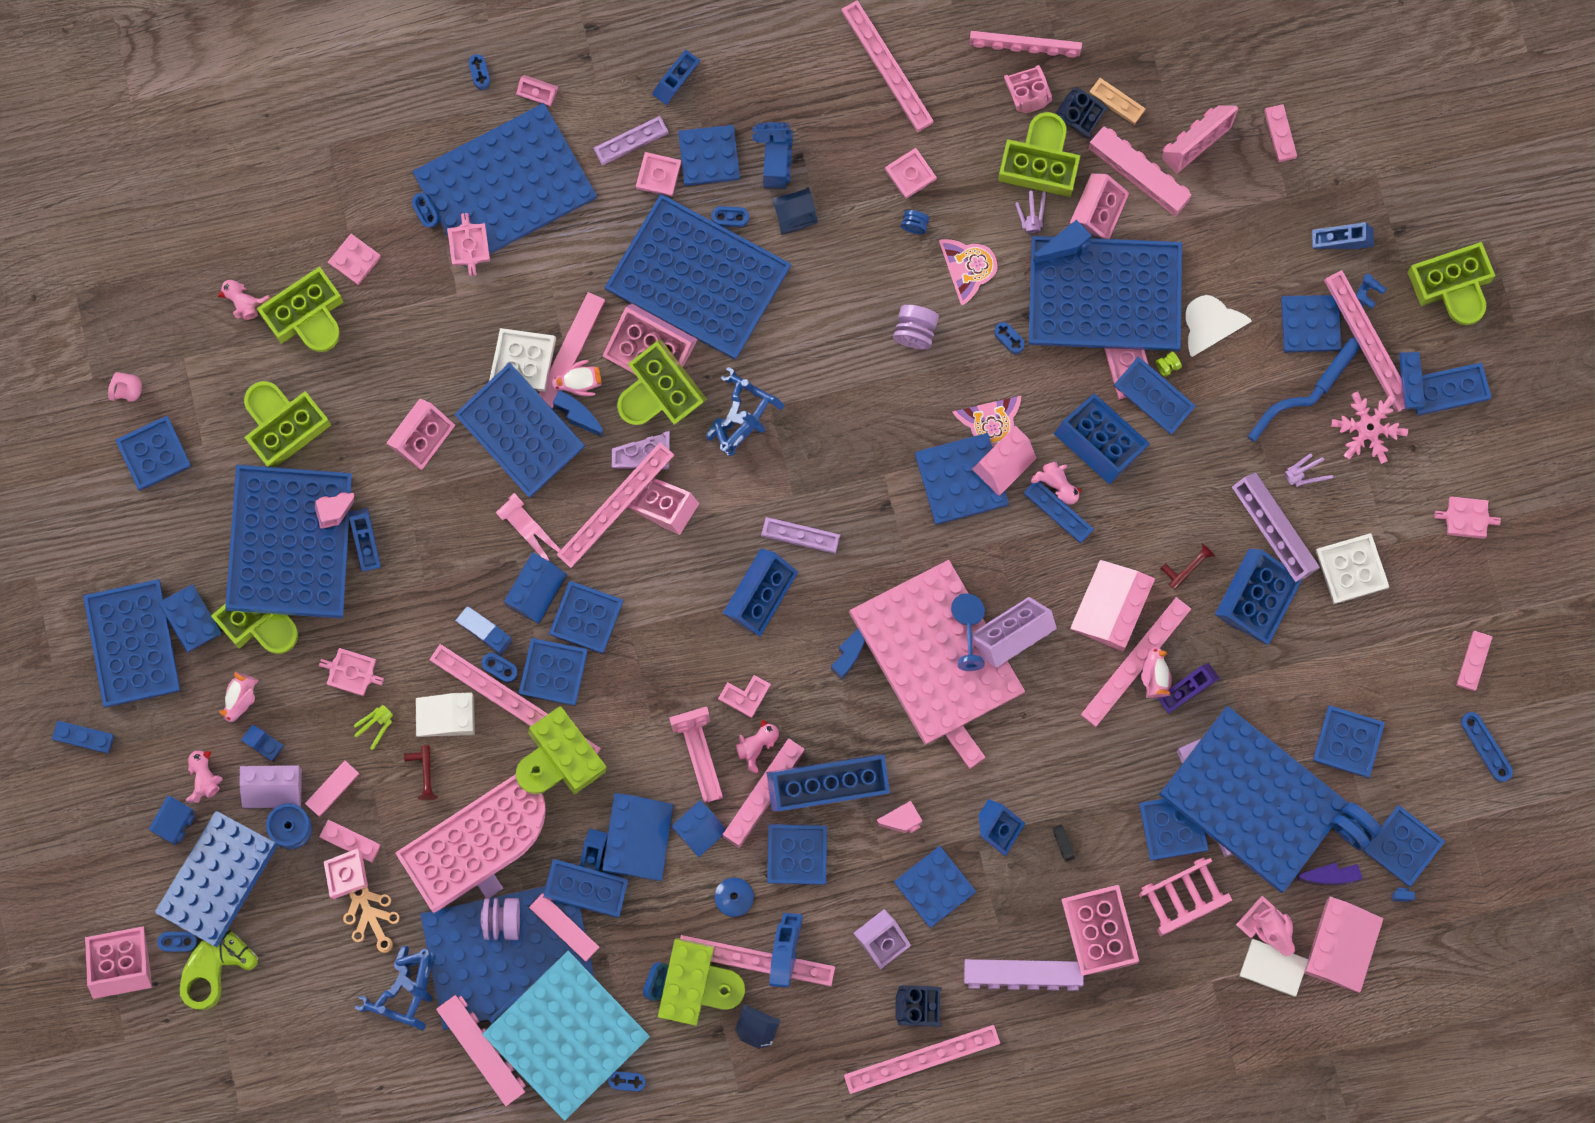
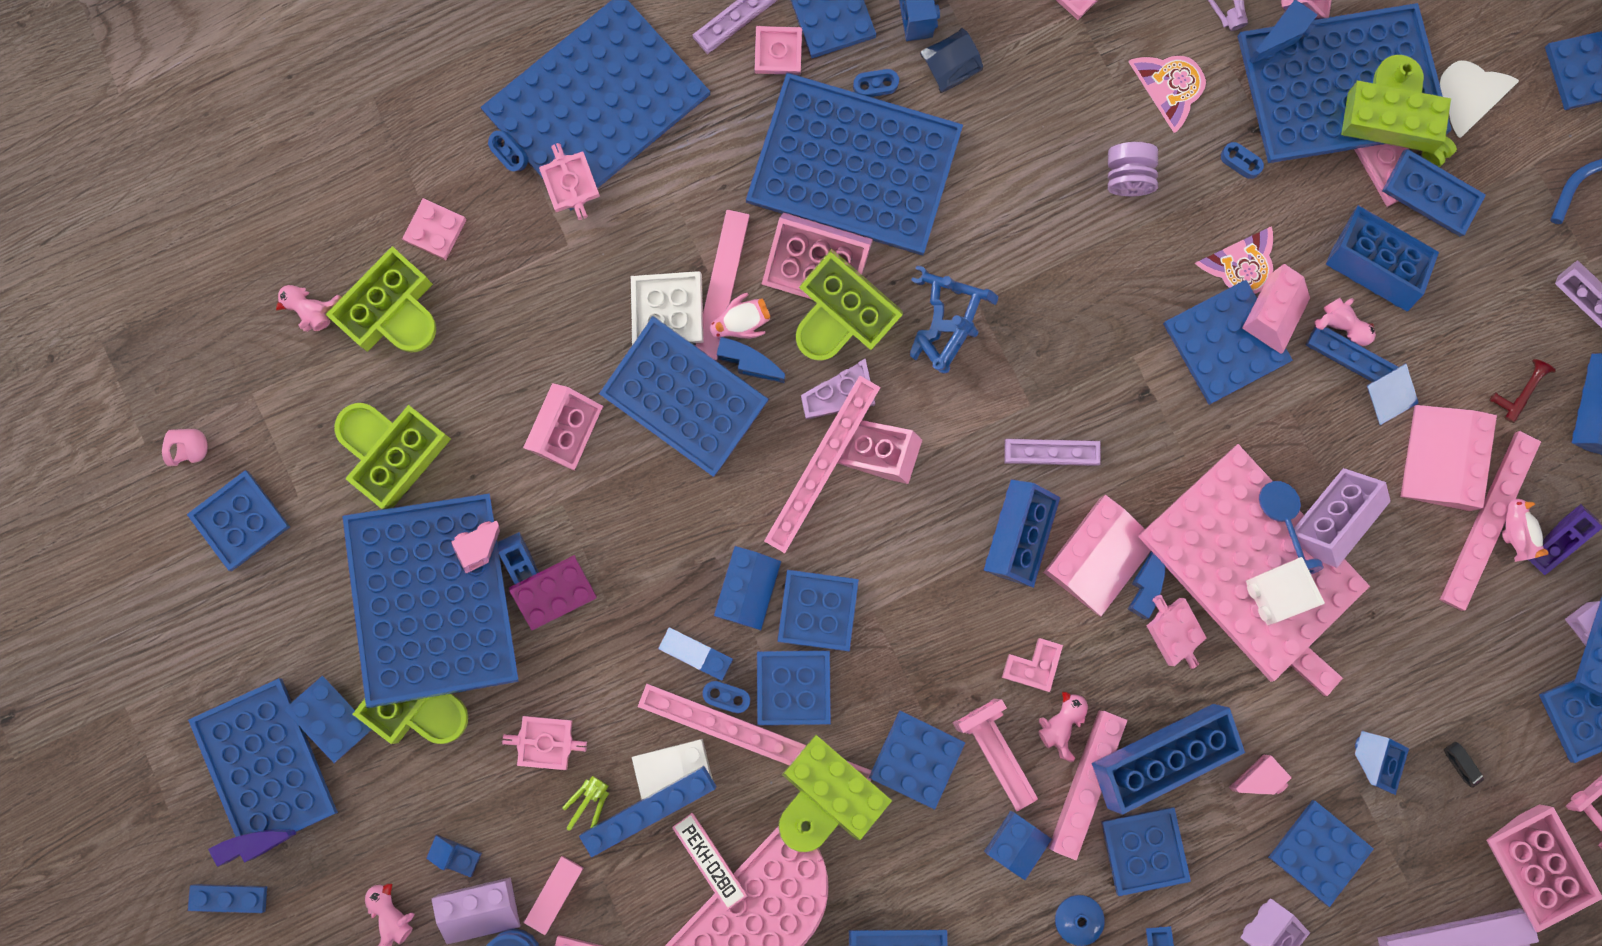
camera: 15 degrees left, 5 degrees up
(111, 697) = (249, 845): none -> dark purple slope
(238, 696) = (411, 805): bright pink animal -> none
(383, 559) = (552, 592): none -> magenta plate
(418, 738) = (648, 811): none -> blue plate
(424, 755) = (660, 829): dark red piece -> none
(457, 787) = (710, 861): none -> tile
(525, 525) = (717, 511): bright pink flag -> none
(594, 849) = (896, 903): blue slope -> none
(636, 746) = (917, 760): none -> blue plate
(637, 837) = (945, 874): blue slope -> none
(816, 622) = (1099, 556): none -> bright pink slope
(861, 692) = (1176, 631): none -> bright pink plate
(915, 222) = (1097, 43): blue wheel -> none
(943, 673) = (1284, 591): none -> white slope
(1081, 546) = (1392, 394): none -> piece
(1137, 322) = (1396, 109): none -> lime brick

